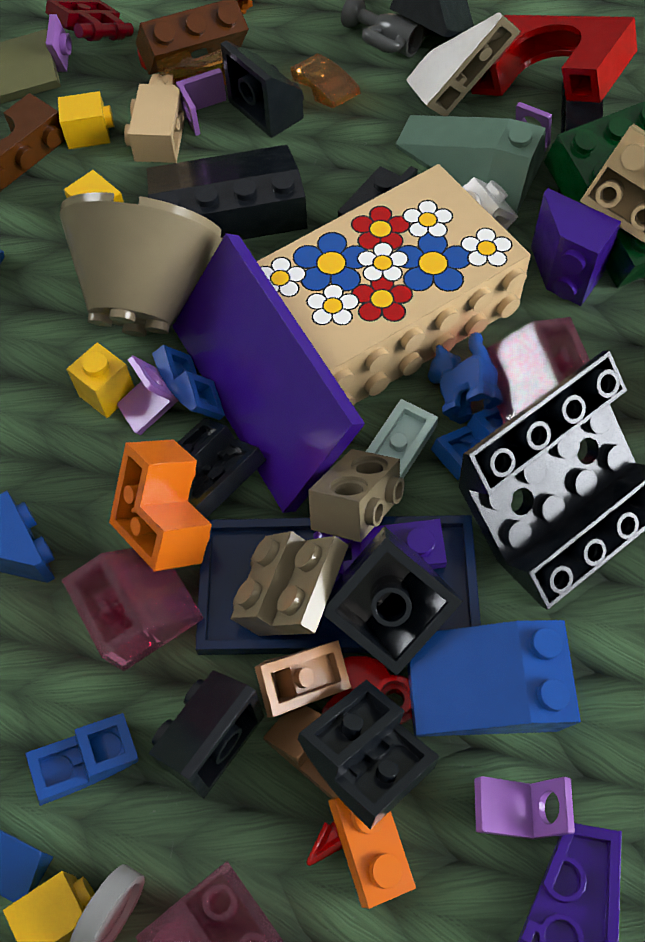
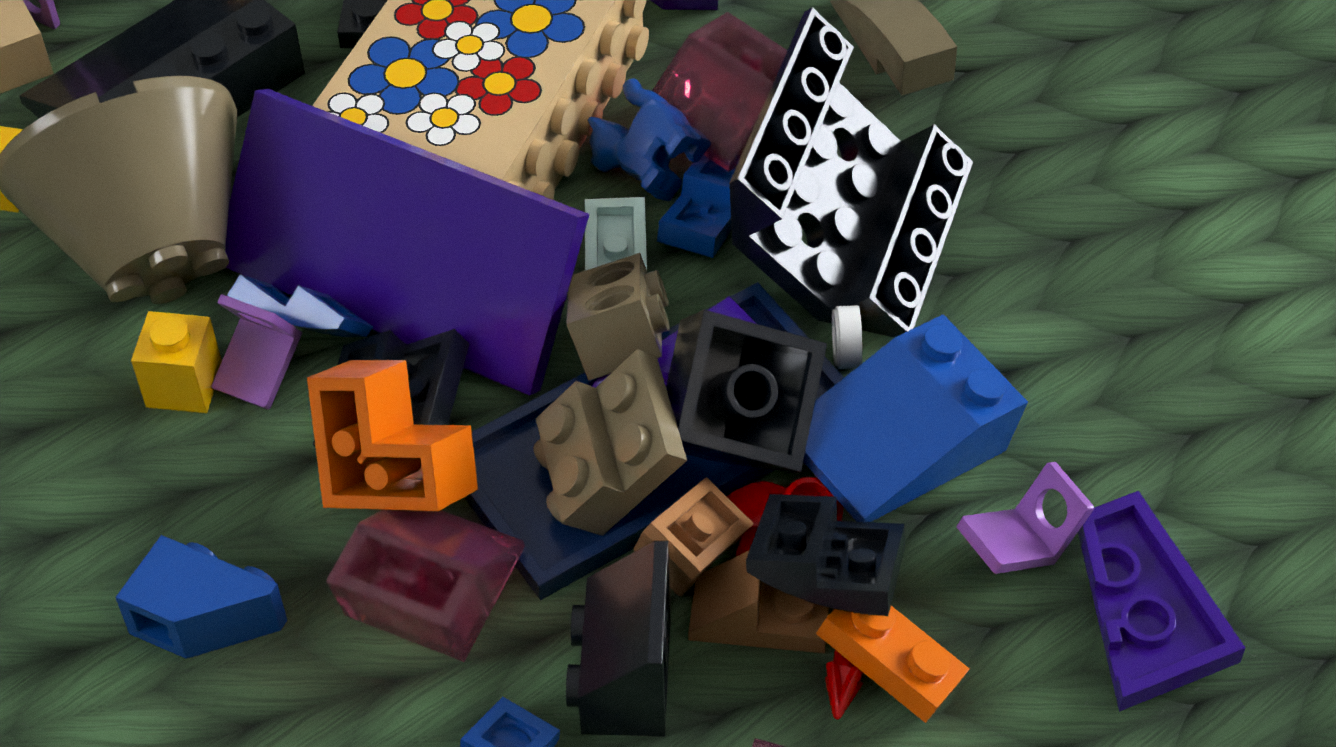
camera: 35 degrees left, 10 degrees down
(500, 589) = (847, 337): none -> white tile

